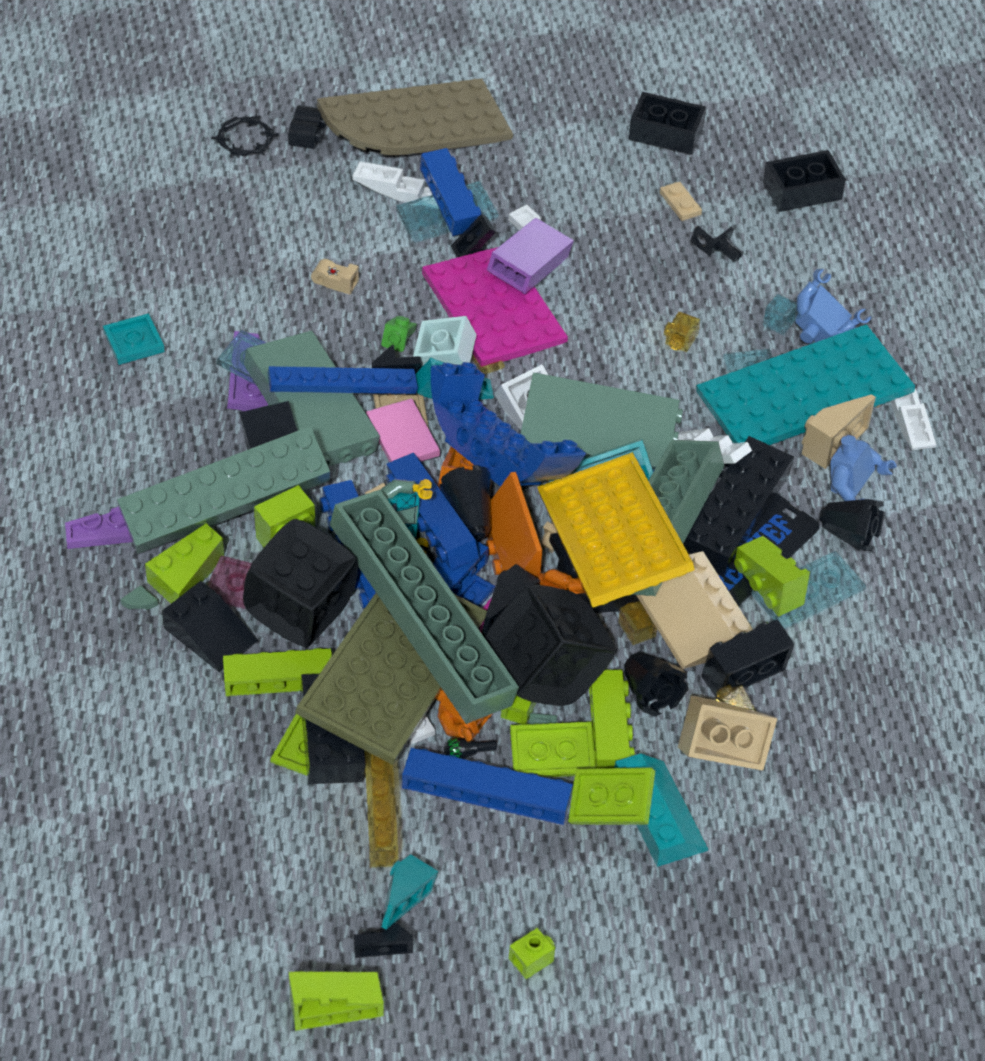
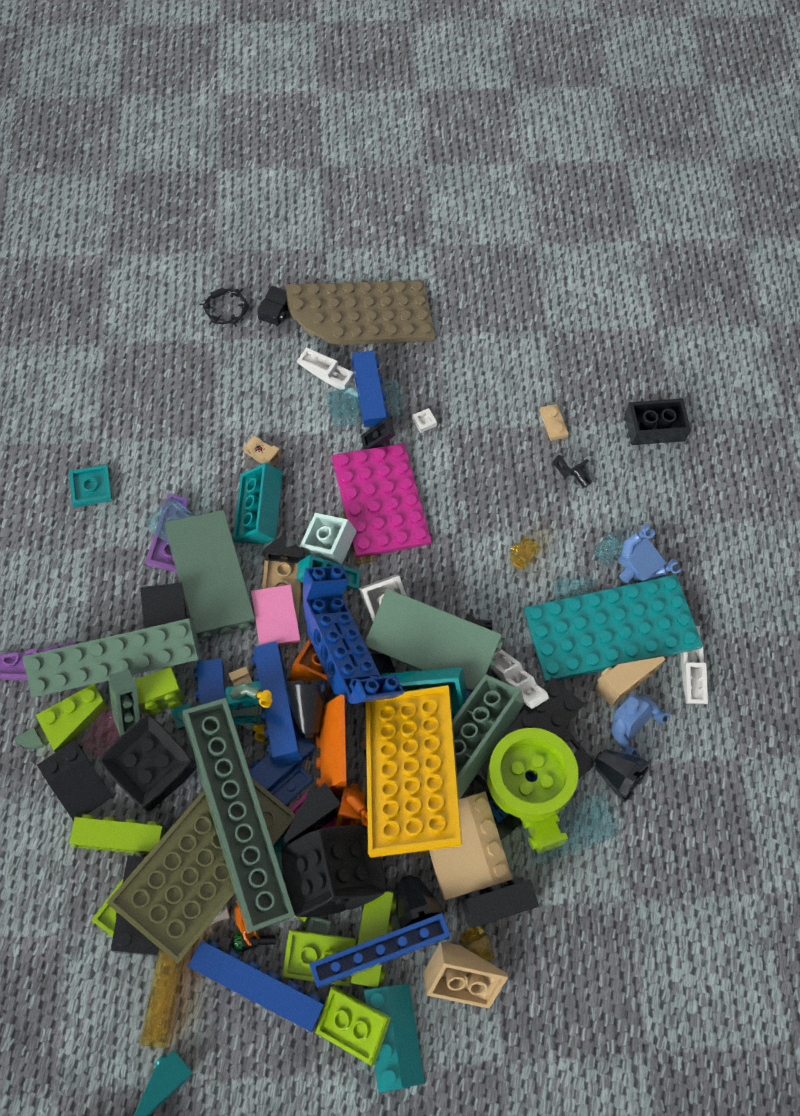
camera: 10 degrees right, 15 degrees up
(251, 523) = (123, 700): none -> sand green brick
(342, 380) = (235, 562): blue plate -> none
(347, 326) = (258, 505): none -> teal slope
(397, 332) = (297, 514): bright green bracket -> none
(530, 255) = (418, 460): brick -> none
(623, 714) = (379, 950): none -> blue brick
(667, 123) = (559, 347): black brick -> none
(753, 500) = (538, 753): none -> lime brick

